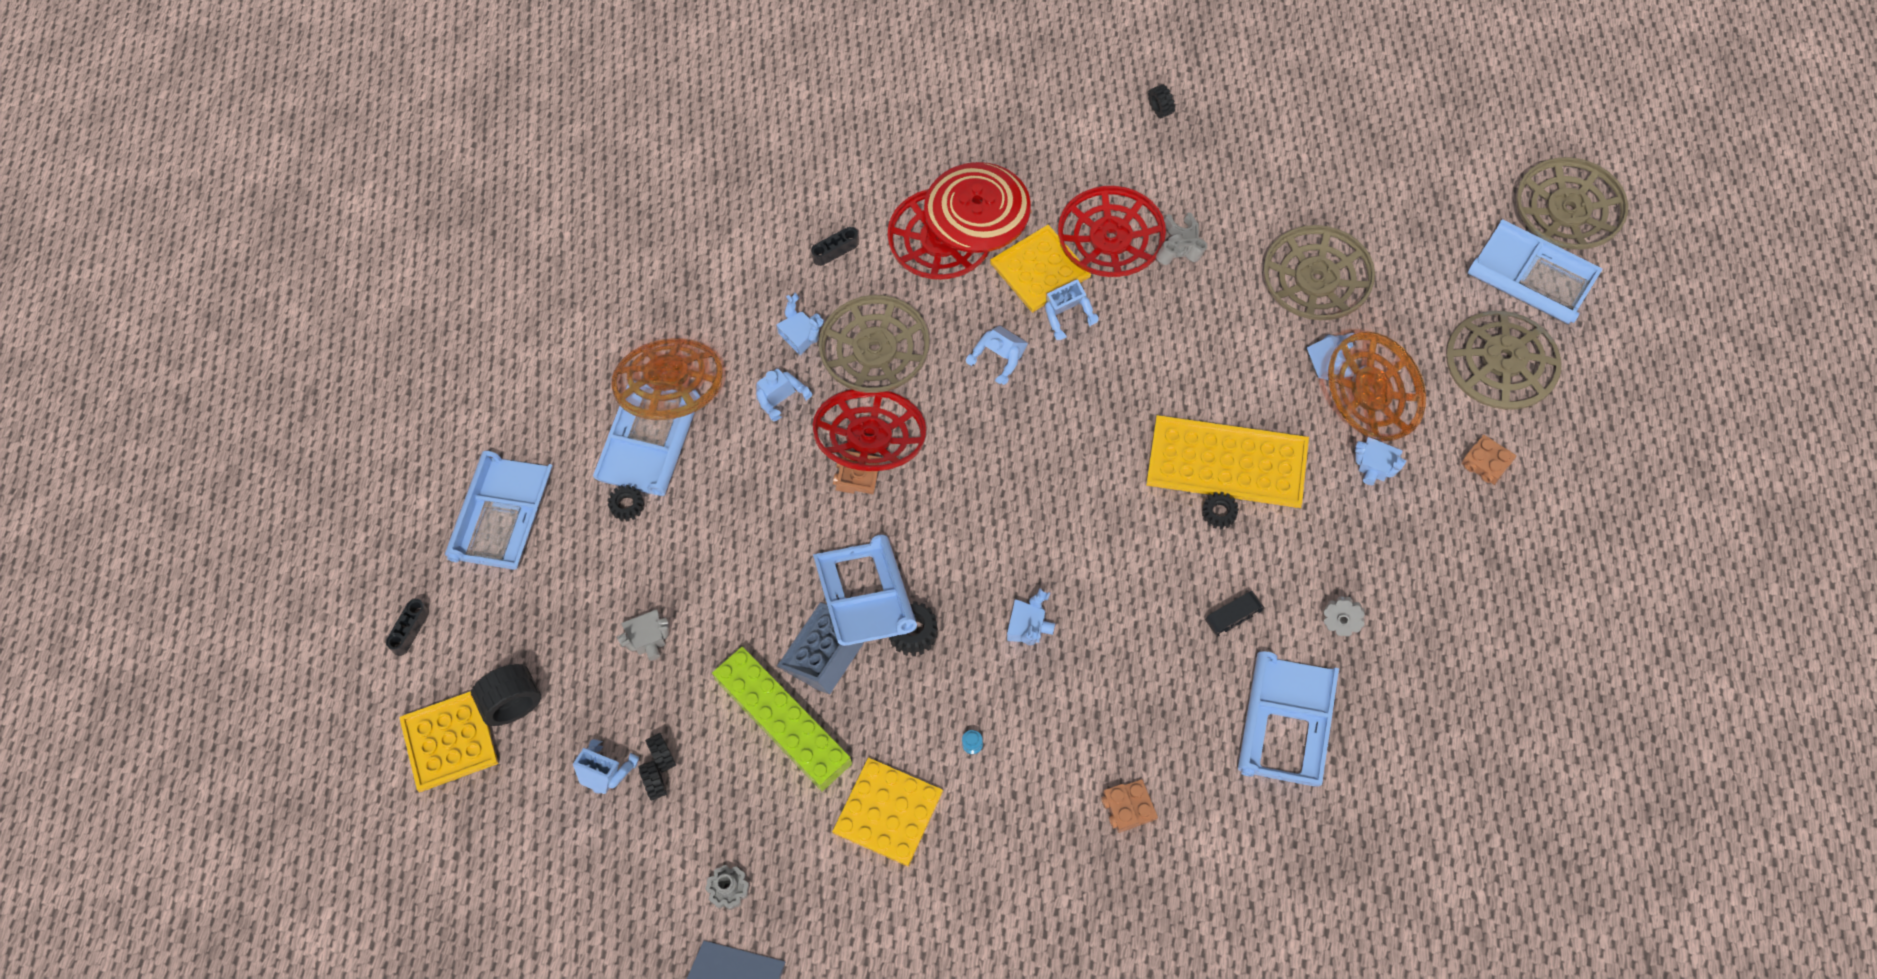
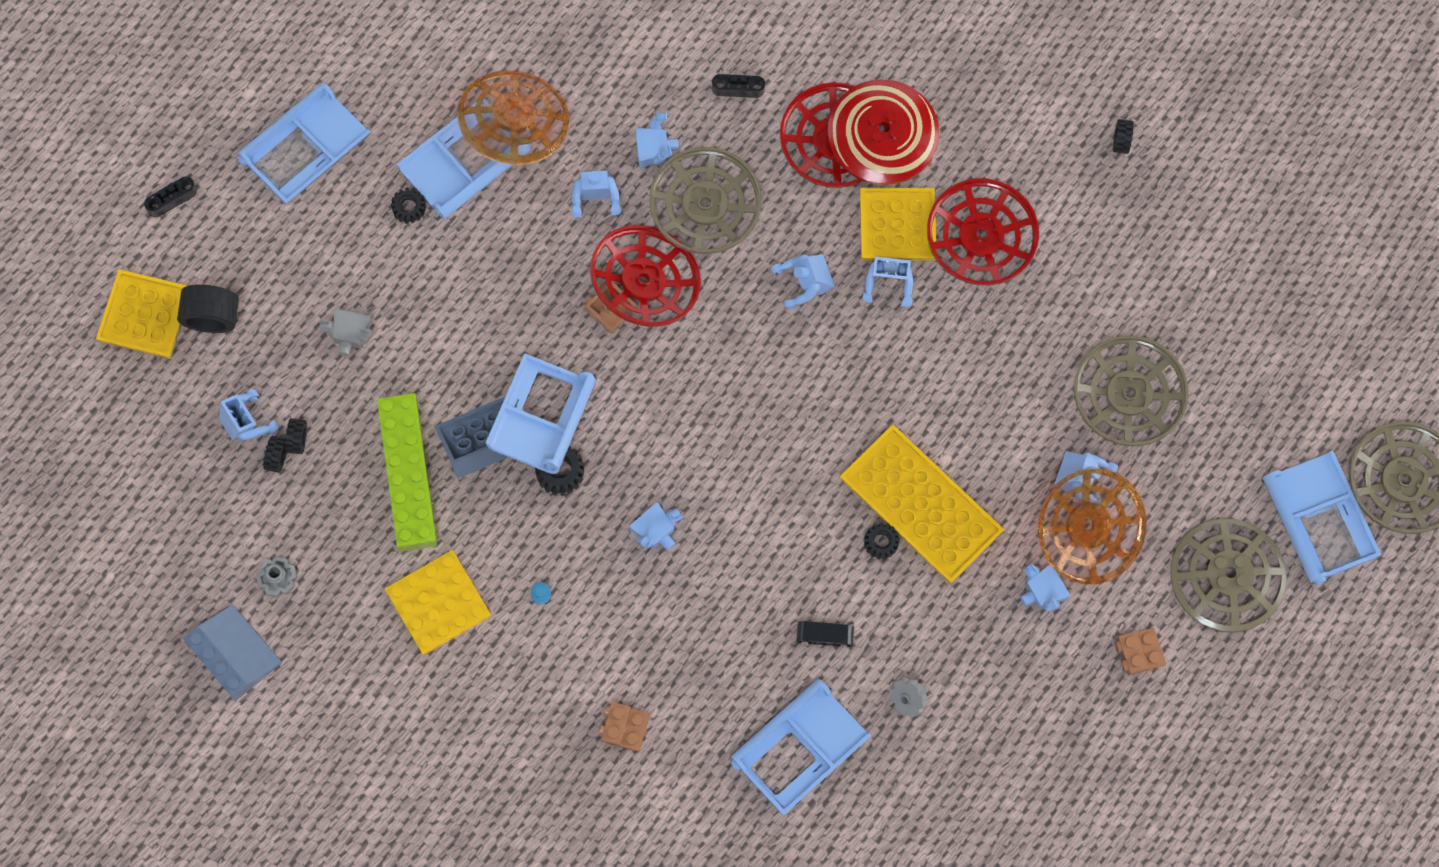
camera: 25 degrees right, 10 degrees up
(1184, 241) = (1037, 285): light grey piece -> none

